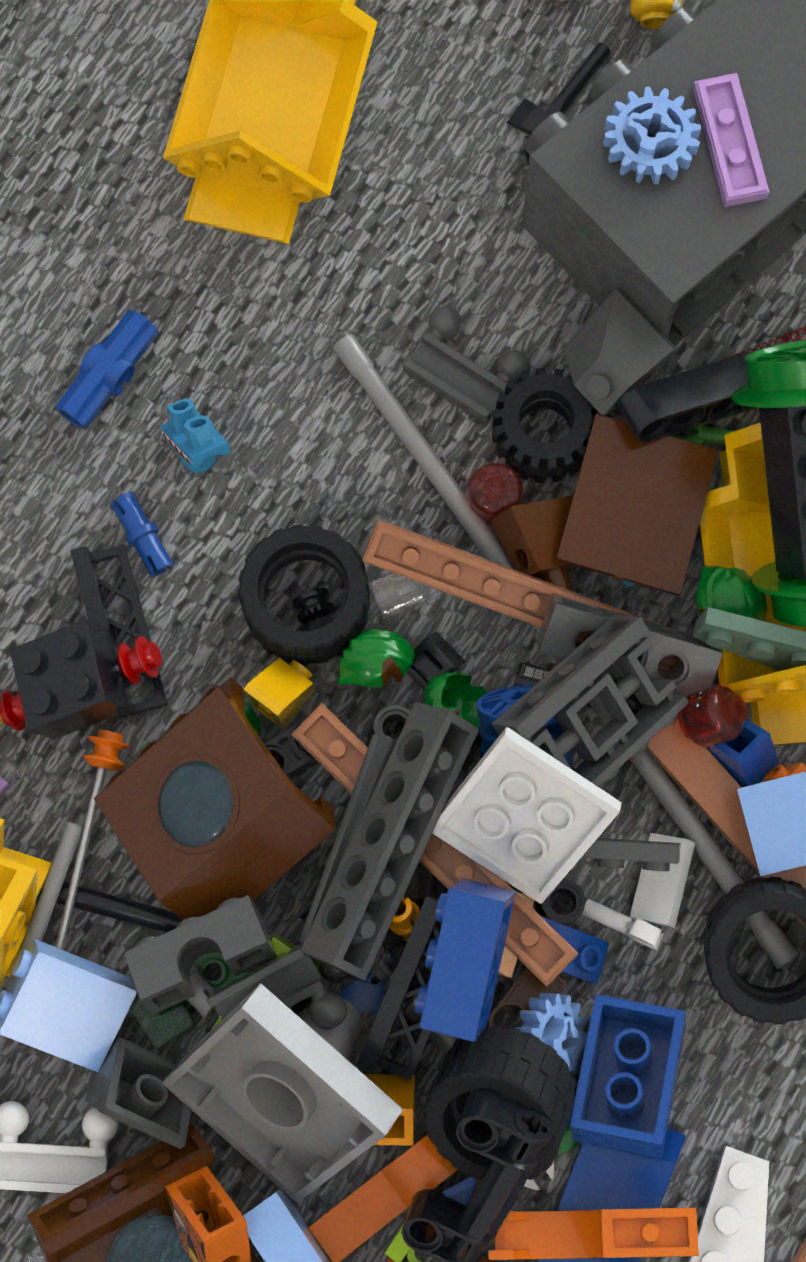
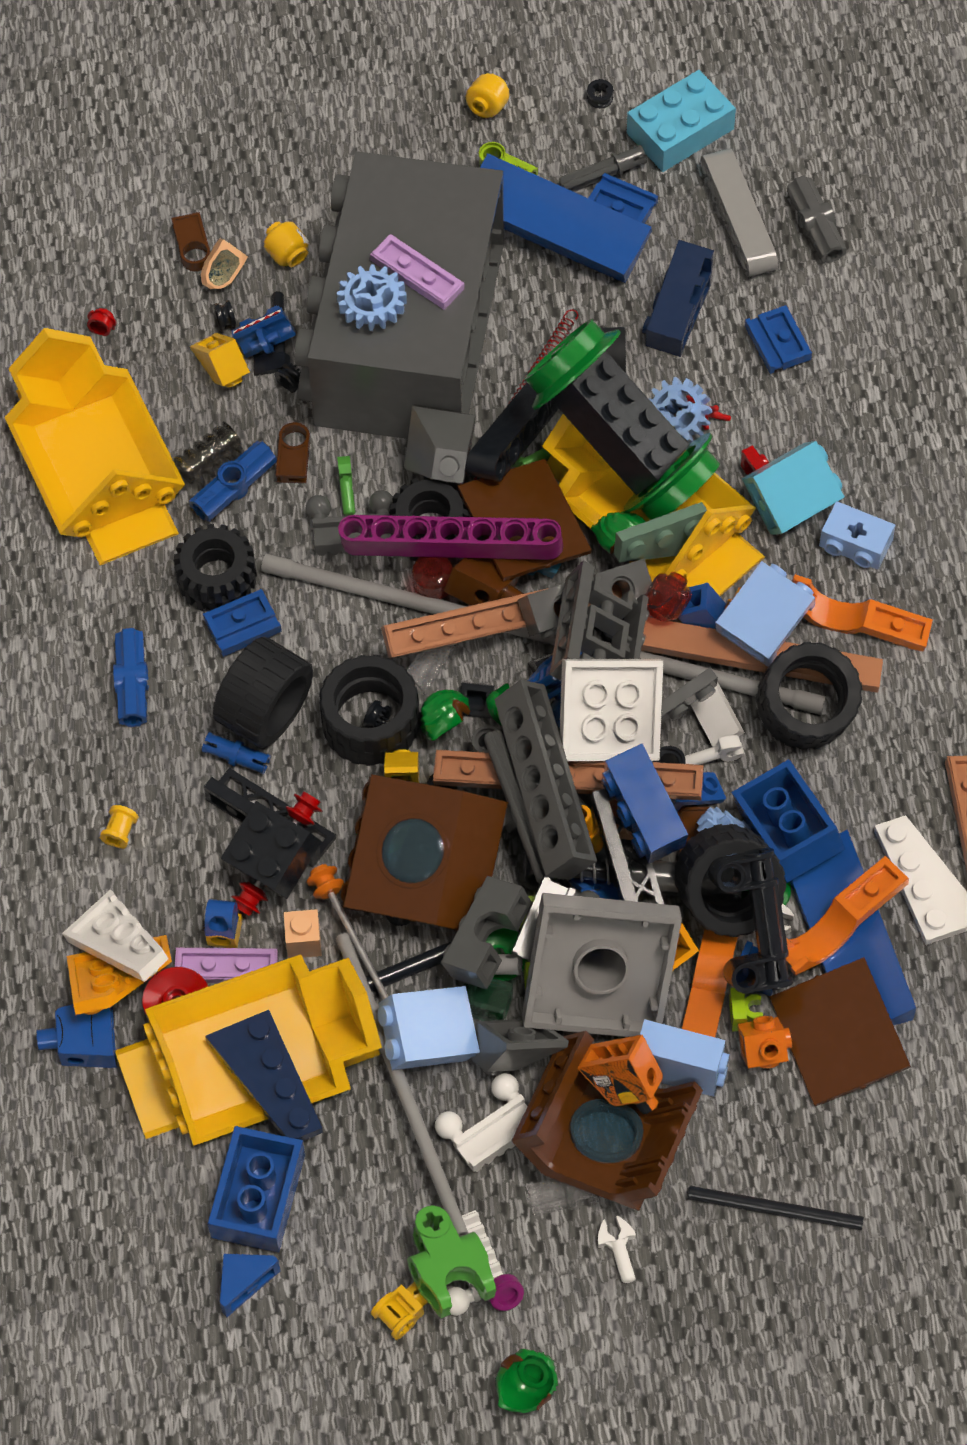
camera: 40 degrees left, 15 degrees down
(39, 789) = (302, 933): none -> light nougat brick
(193, 436) = (211, 671): dark azure hips -> none
(205, 494) = (262, 692): none -> black tyre
(265, 393) = (242, 622): none -> blue plate
(278, 281) = (209, 546): none -> black tyre
(383, 181) = (209, 454): none -> clear smoke piece
(409, 223) = (221, 493): none -> blue piece
(464, 248) = (293, 460): none -> reddish brown piece
(482, 80) = (221, 359): none -> yellow slope
(502, 307) = (346, 484): none -> bright green bar
(528, 32) = (225, 315): none -> black bush
(543, 489) = (463, 546): none -> magenta beam
(549, 82) = (263, 332): none -> blue hips

